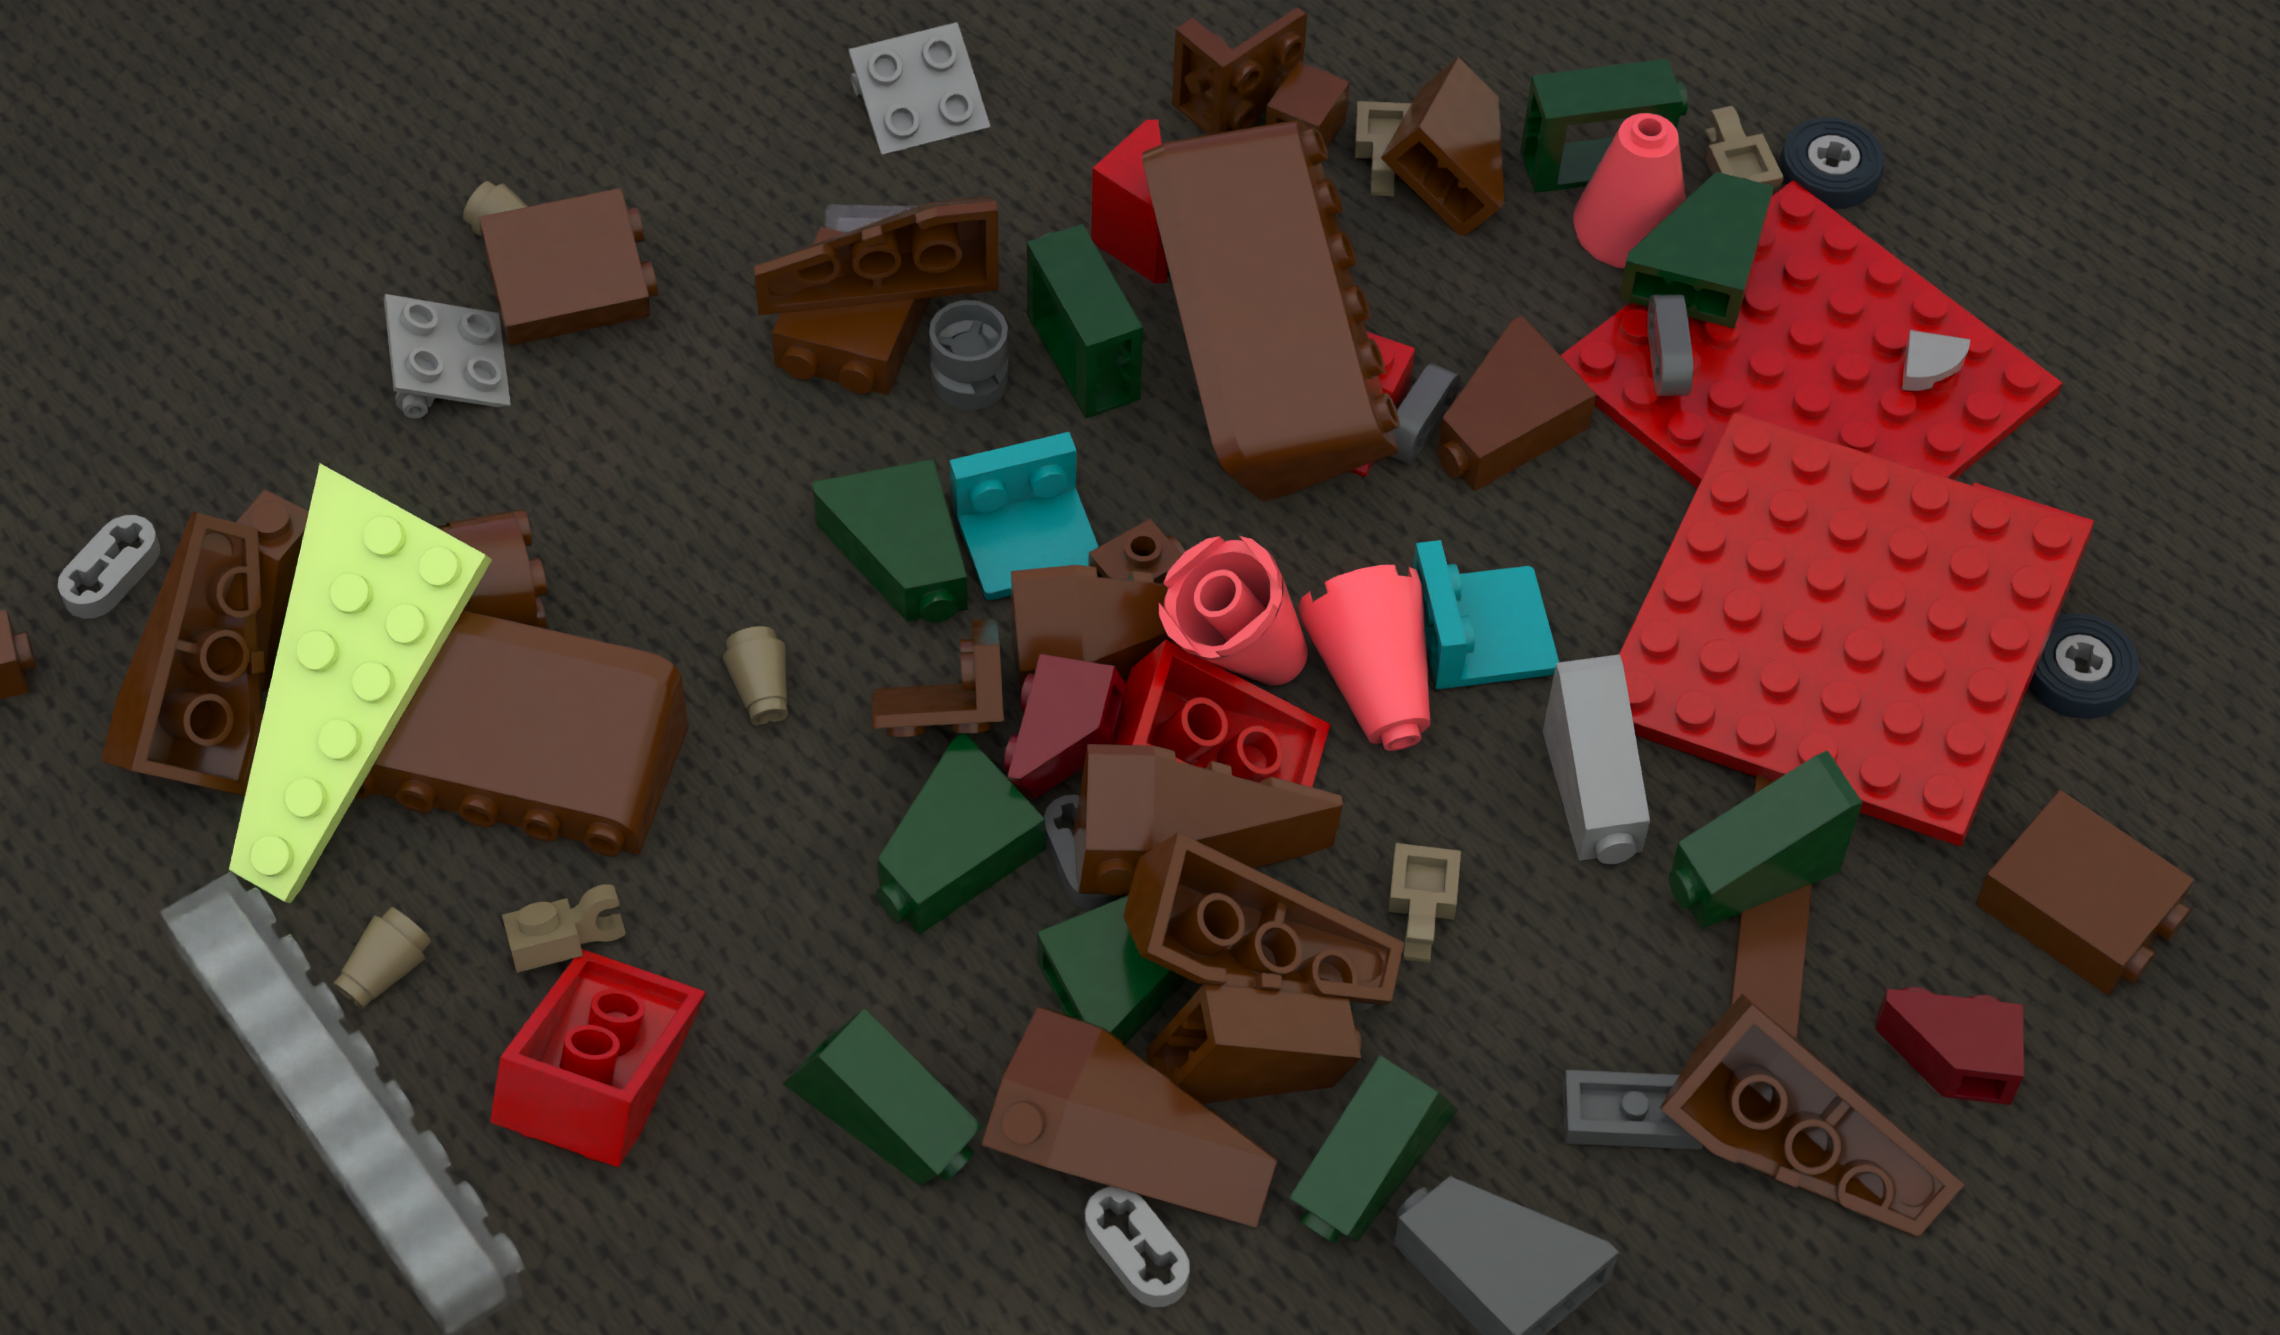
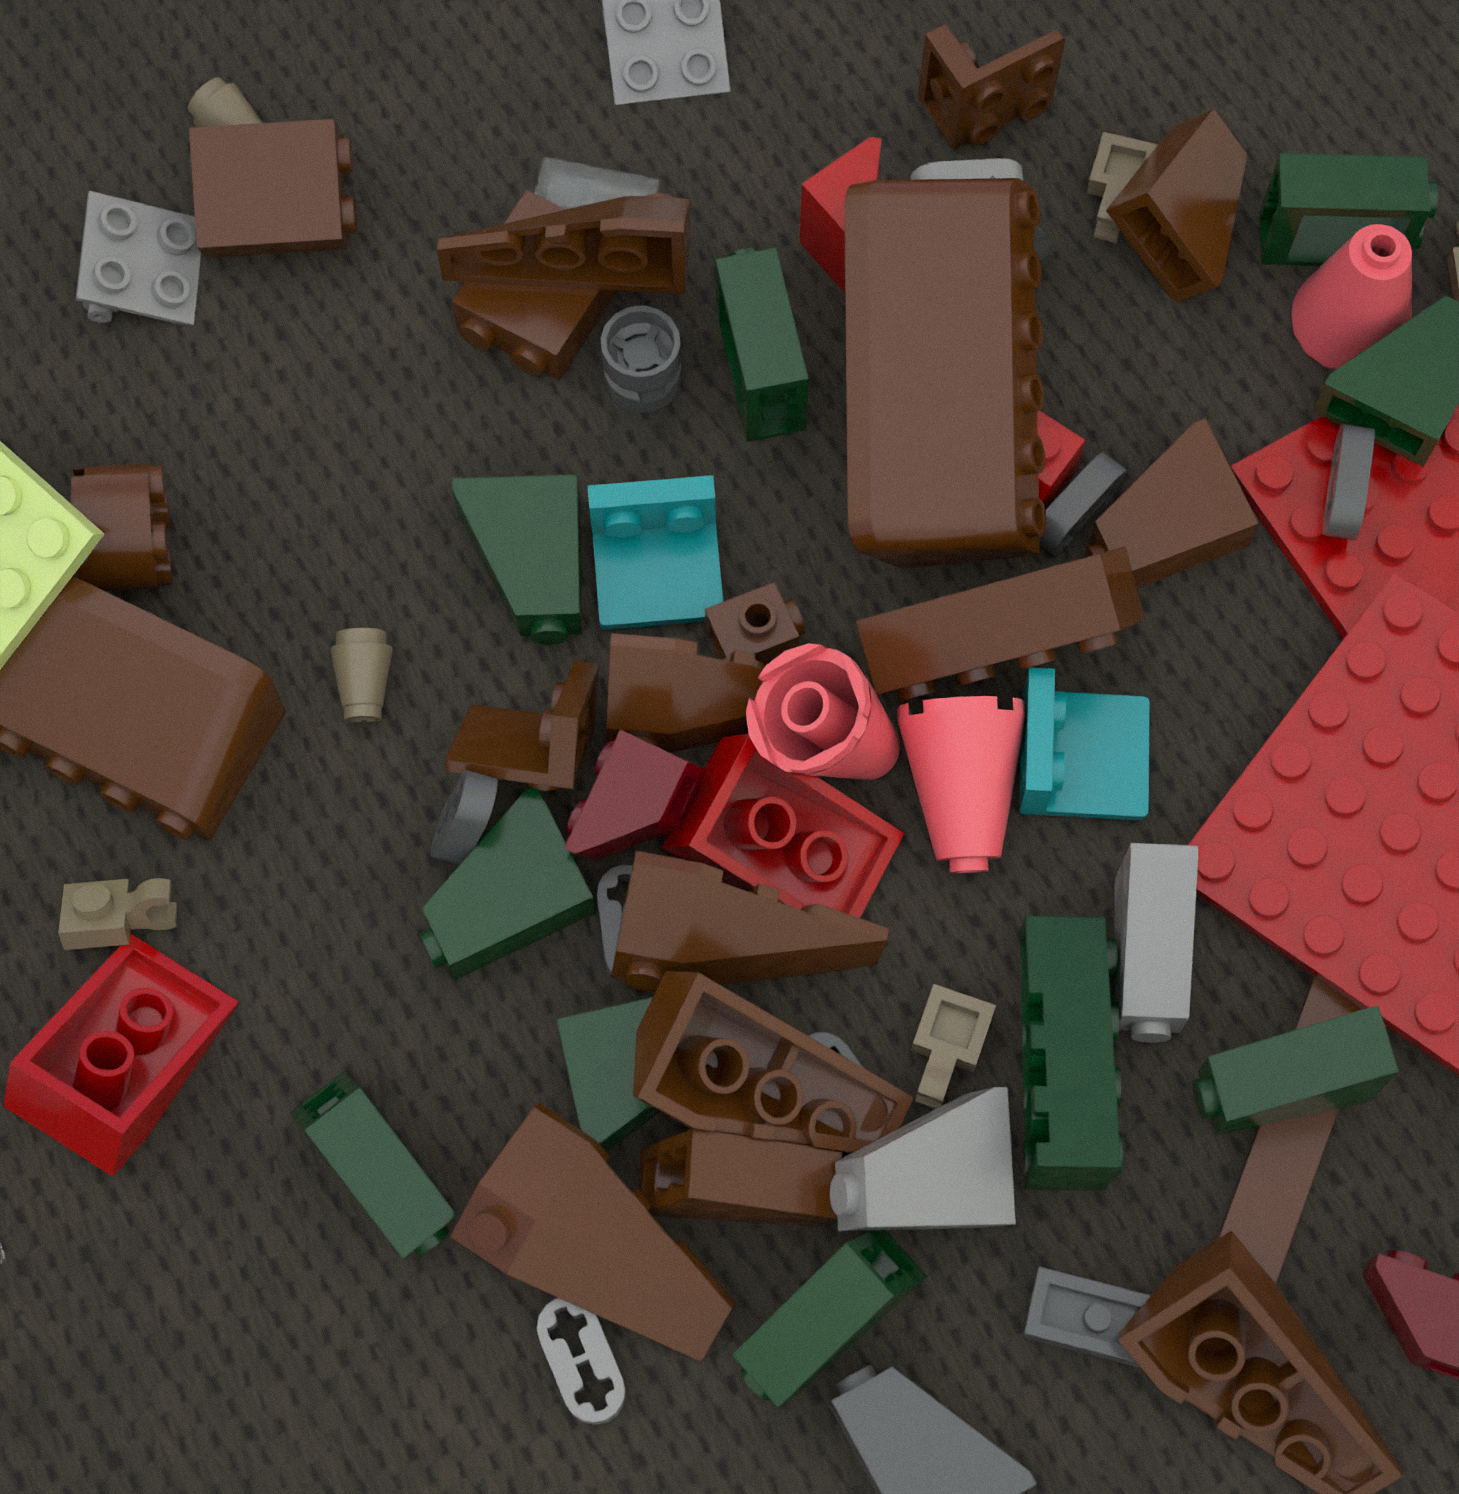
camera: 15 degrees right, 15 degrees up
(898, 772) = (464, 817): none -> dark grey beam
(1312, 97) = (1048, 137): reddish brown brick -> none
(1382, 508) = (1001, 622): none -> reddish brown wedge
(1444, 1001) = (933, 1172): none -> light grey slope
(1544, 882) = (1069, 1054): none -> dark green wedge

